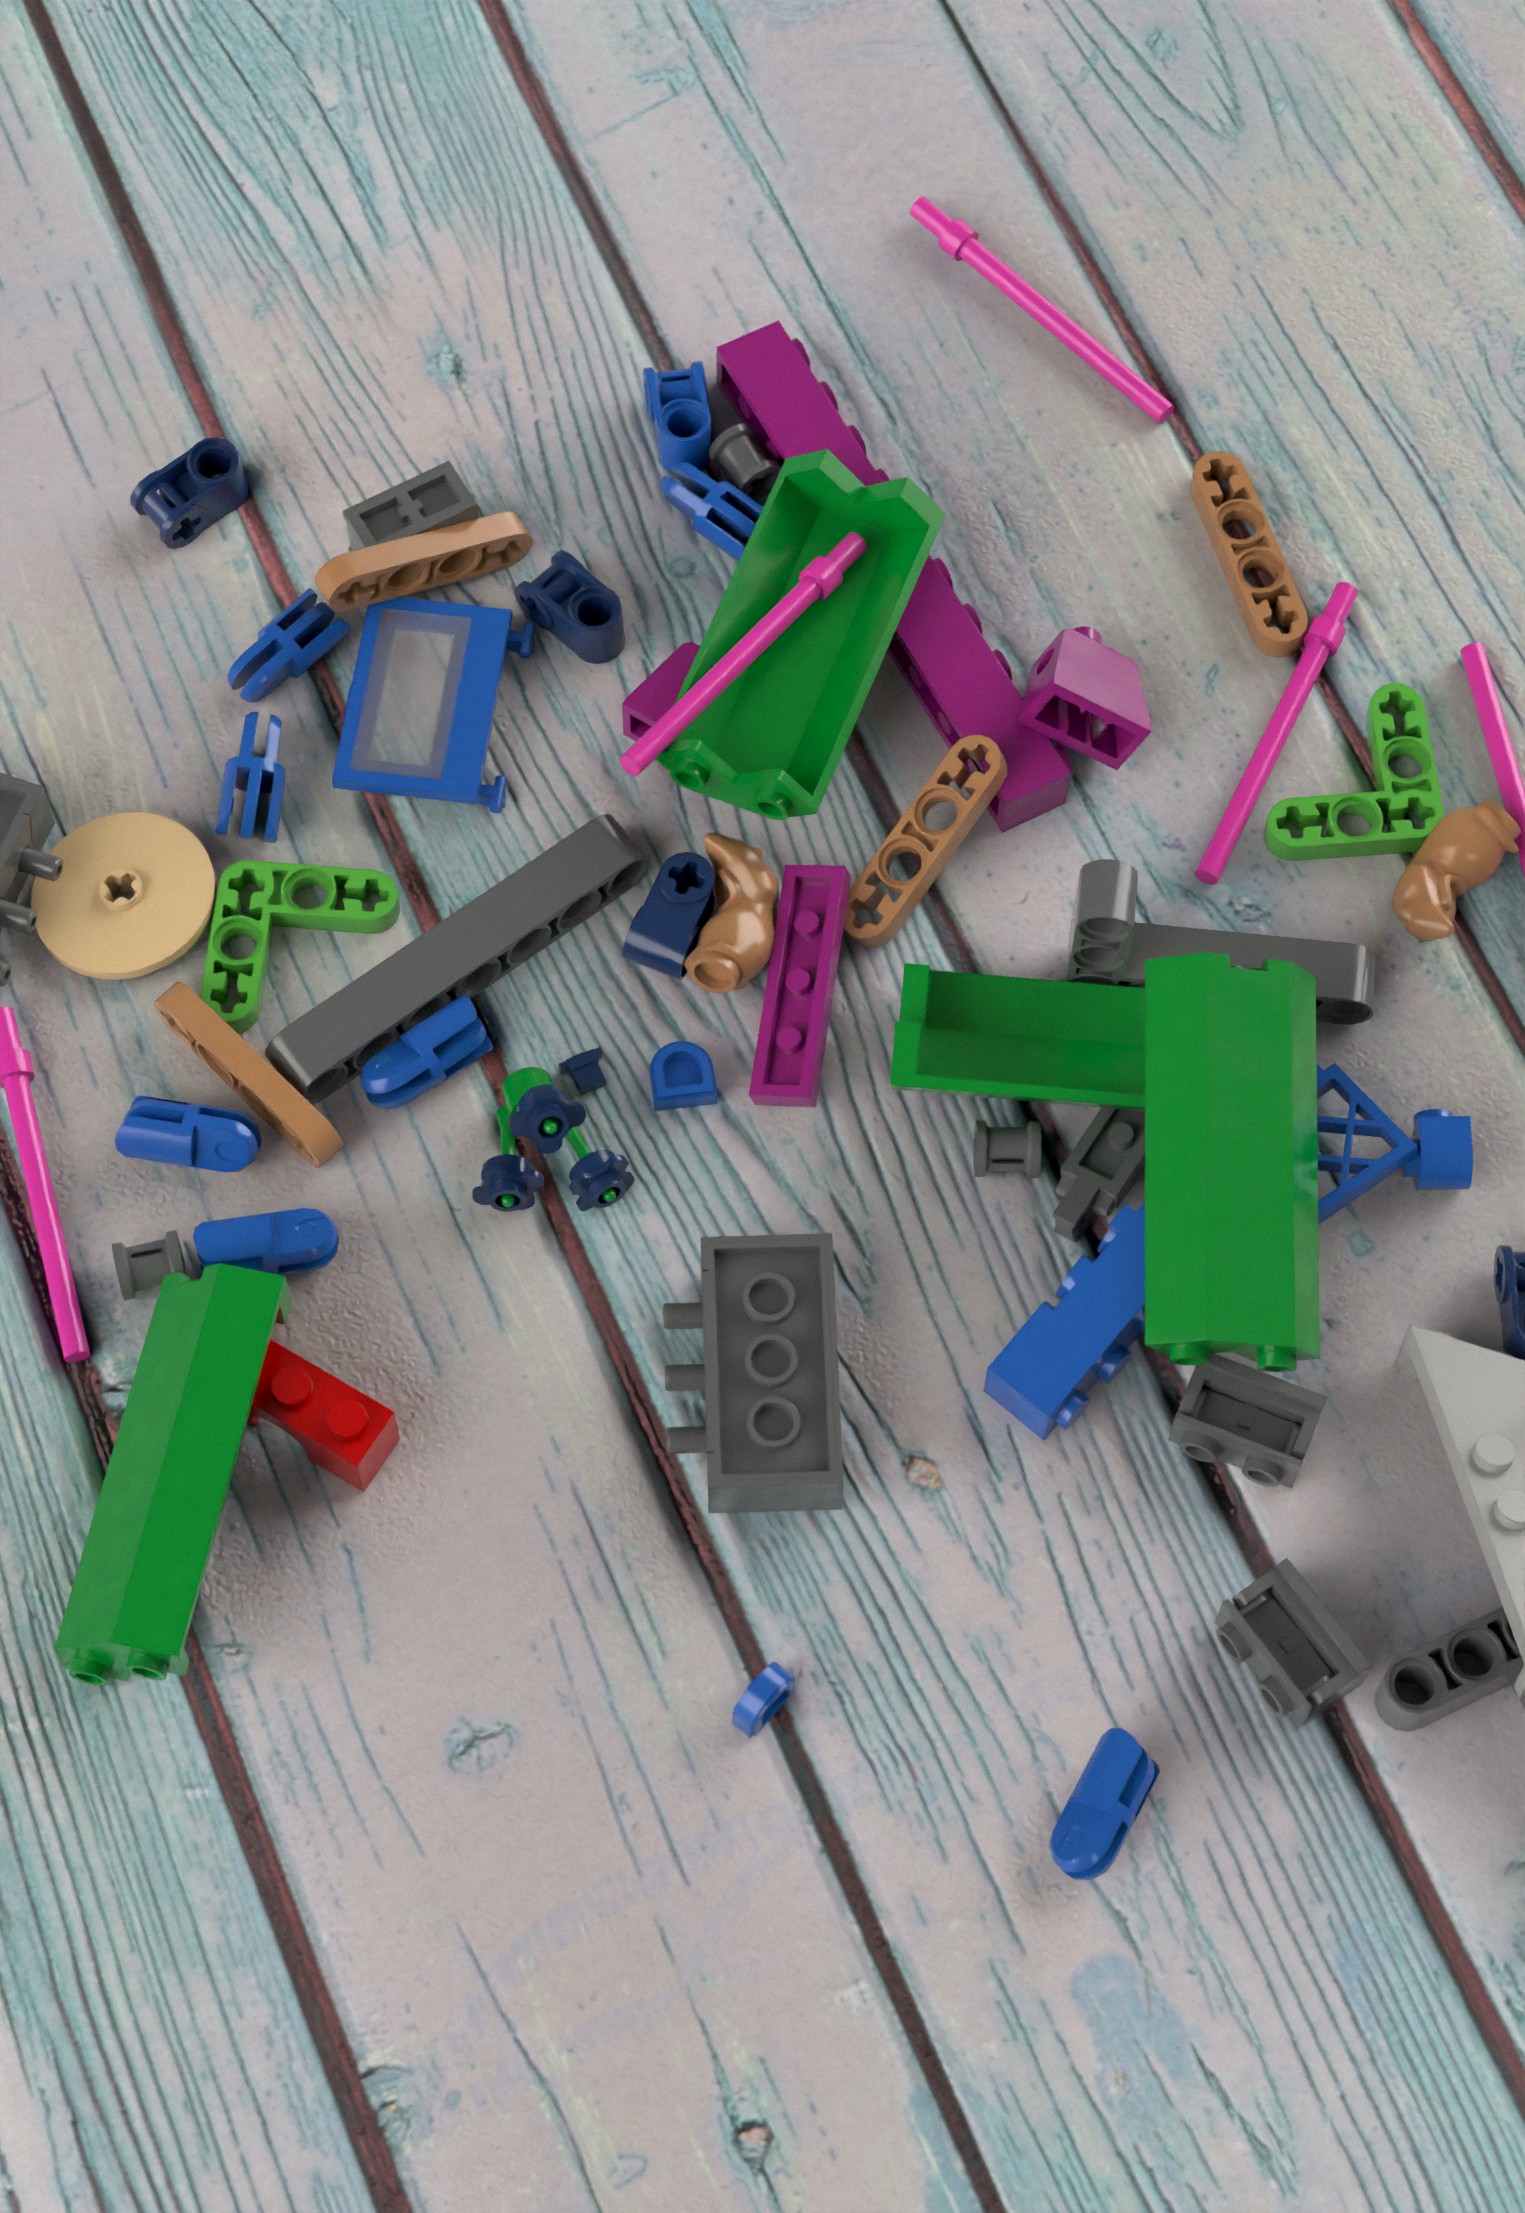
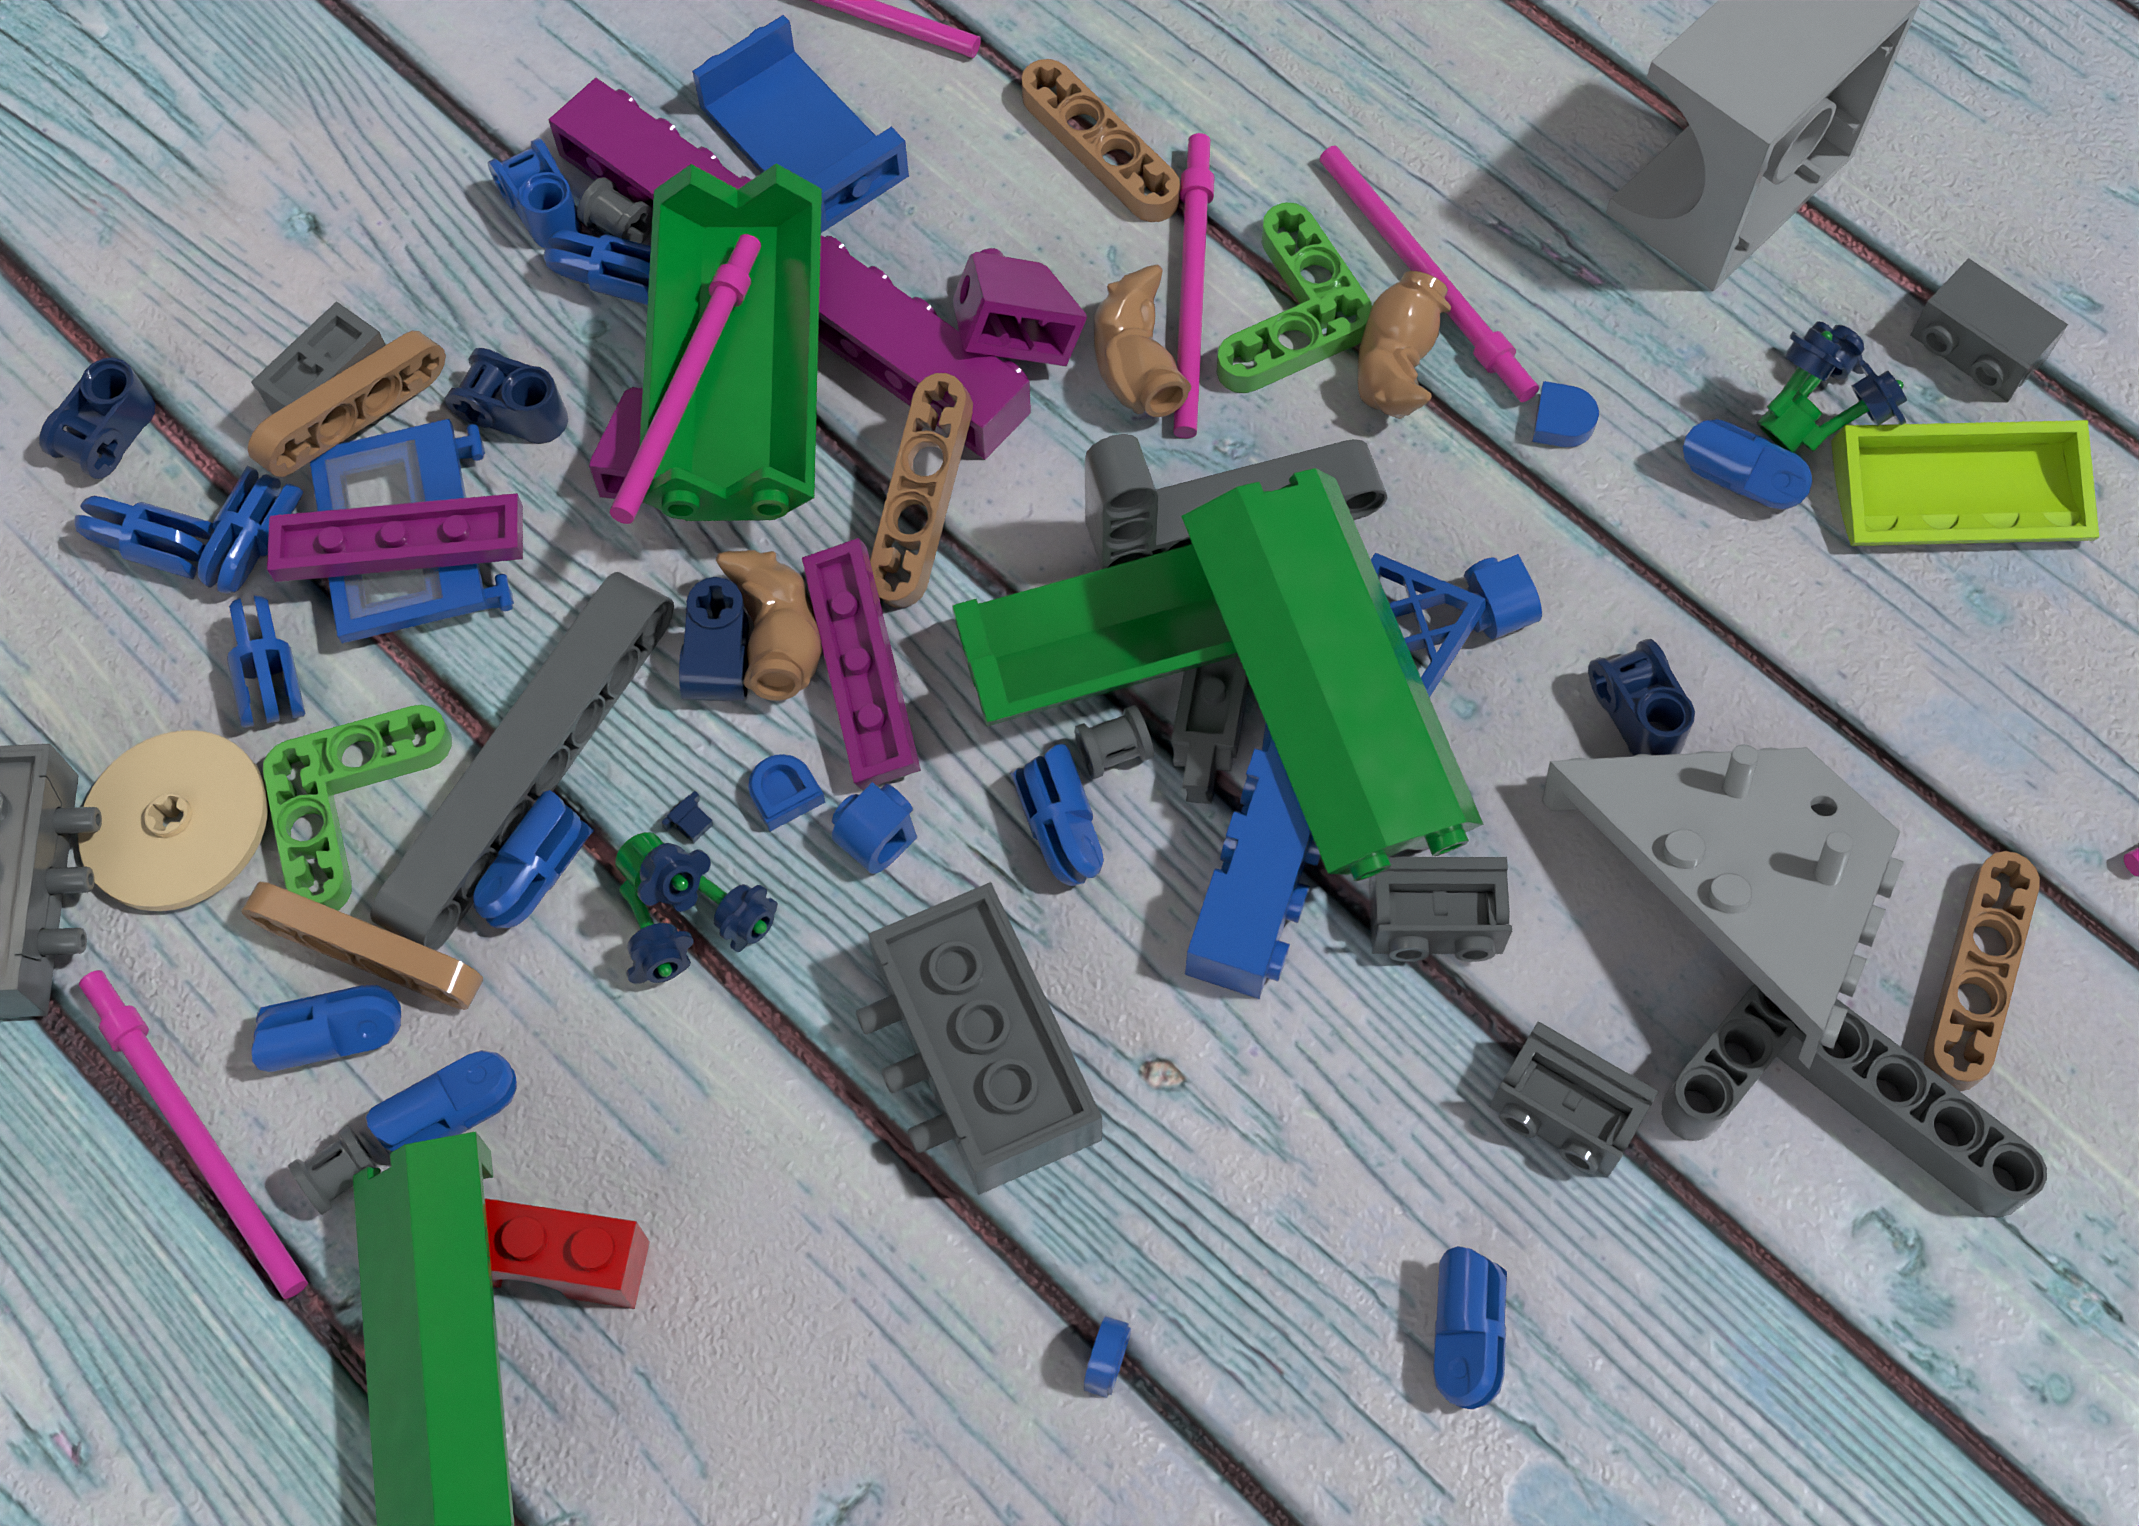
camera: 20 degrees left, 0 degrees up
(190, 613) = (145, 533): none -> blue arm
(419, 707) = (395, 537): none -> magenta plate
(750, 1143) = (874, 826): none -> blue plate
(927, 1198) = (1059, 815): none -> blue arm
(957, 433) = (790, 117): none -> blue panel
(1180, 784) = (1127, 357): none -> medium nougat animal

